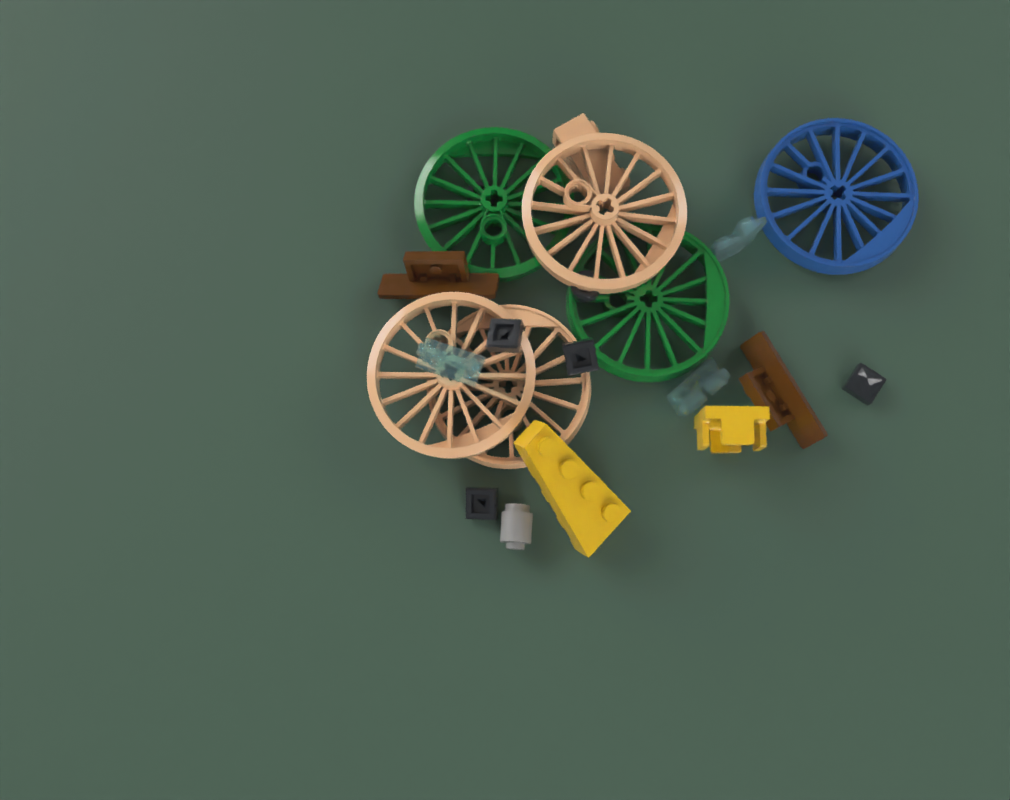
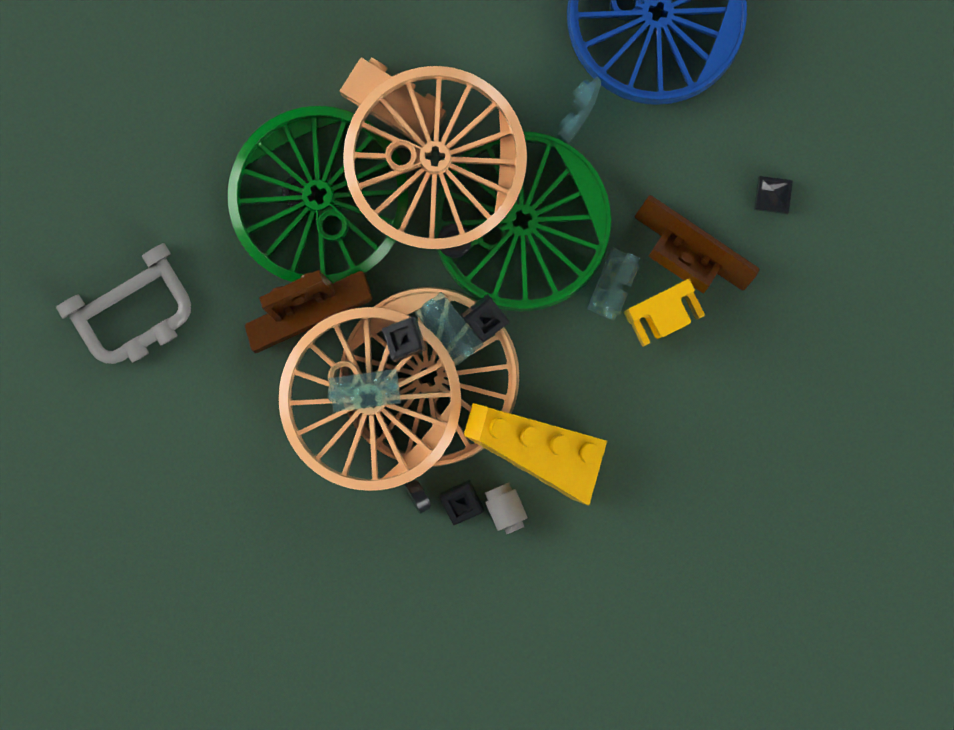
camera: 25 degrees left, 10 degrees up
(315, 246) = (162, 332): none -> light grey bar
(448, 478) = (417, 496): none -> black tile
(546, 350) = (449, 328): none -> clear light blue hinge

